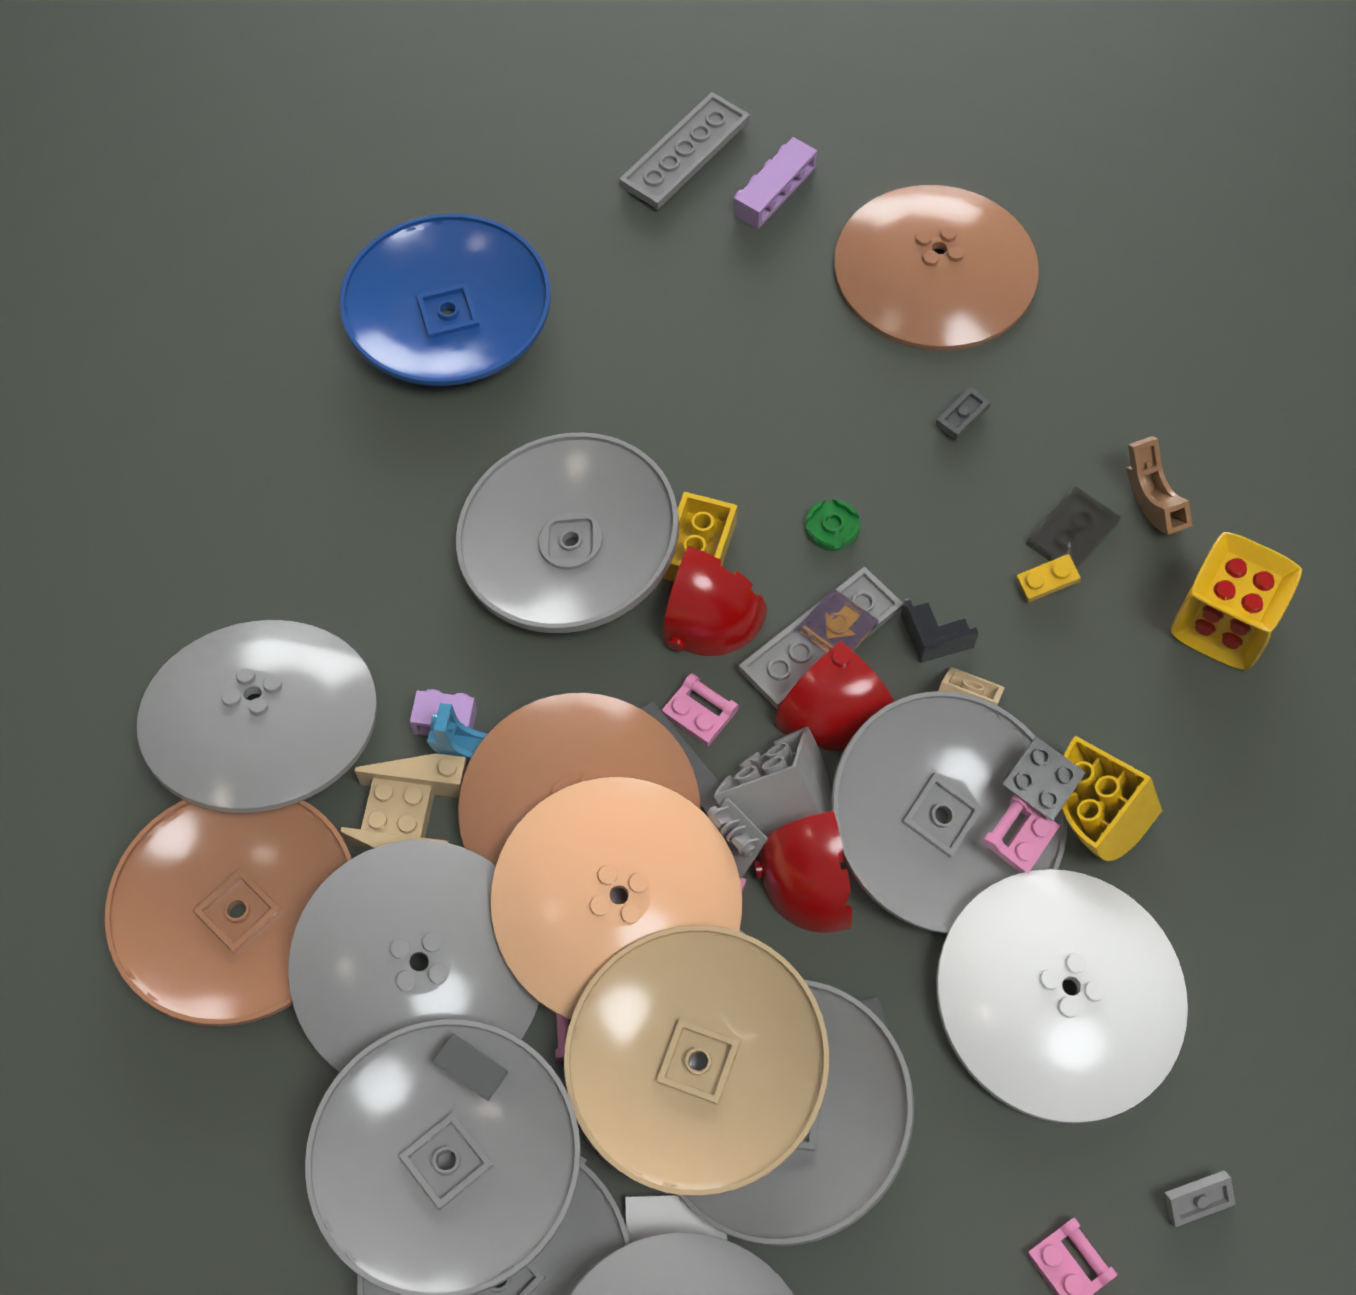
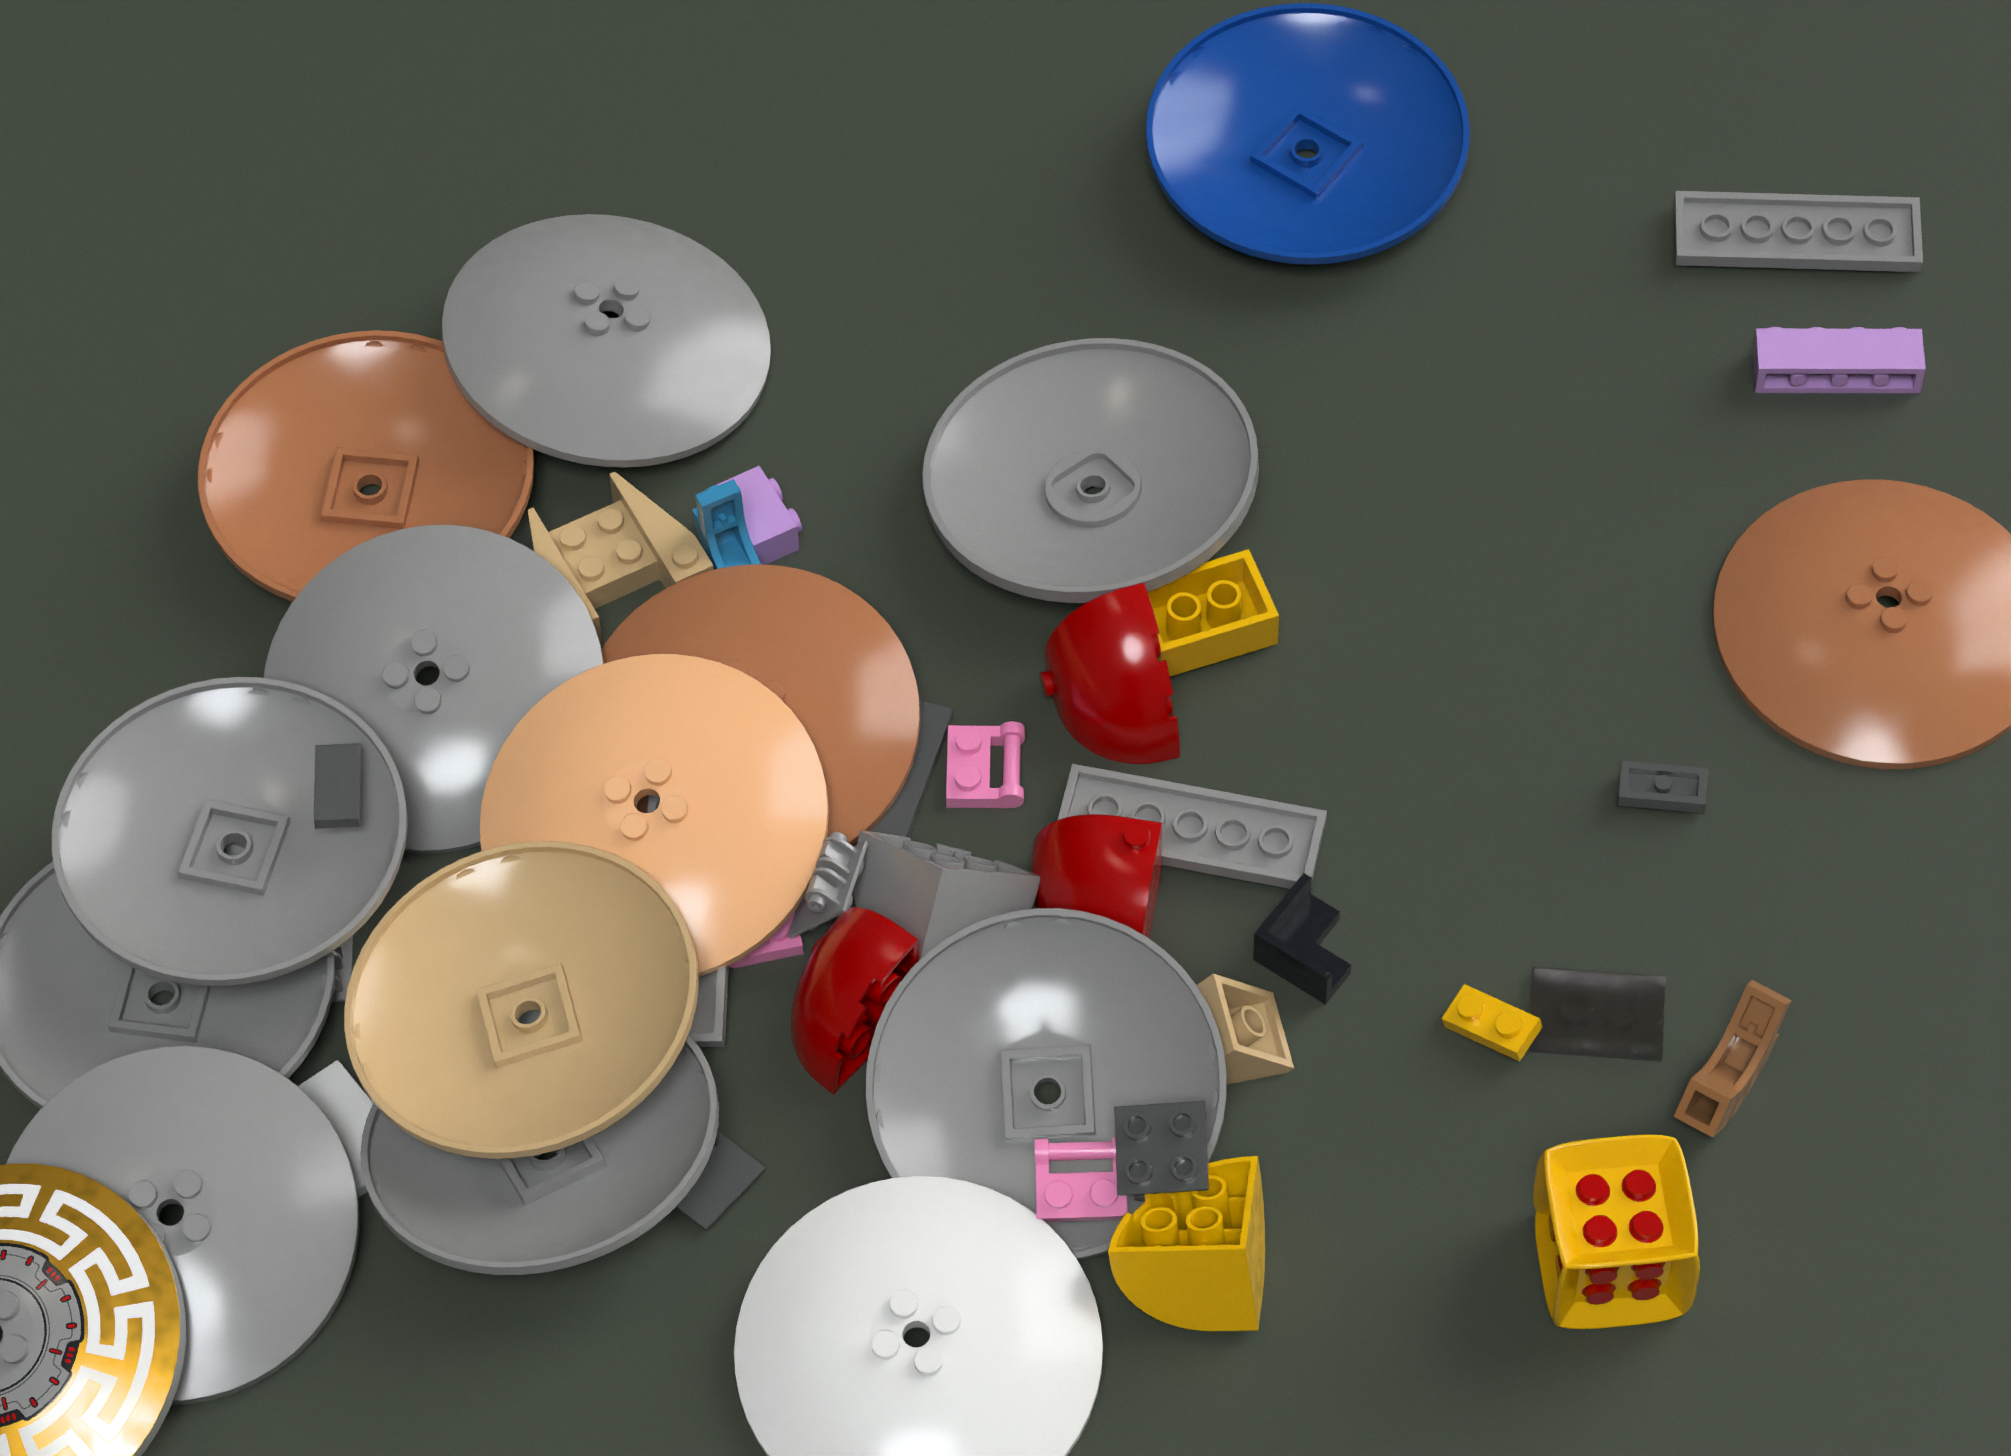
camera: 55 degrees right, 5 degrees down
(832, 525) = (1366, 747): green tile -> none
(837, 620) = (1213, 830): tile -> none

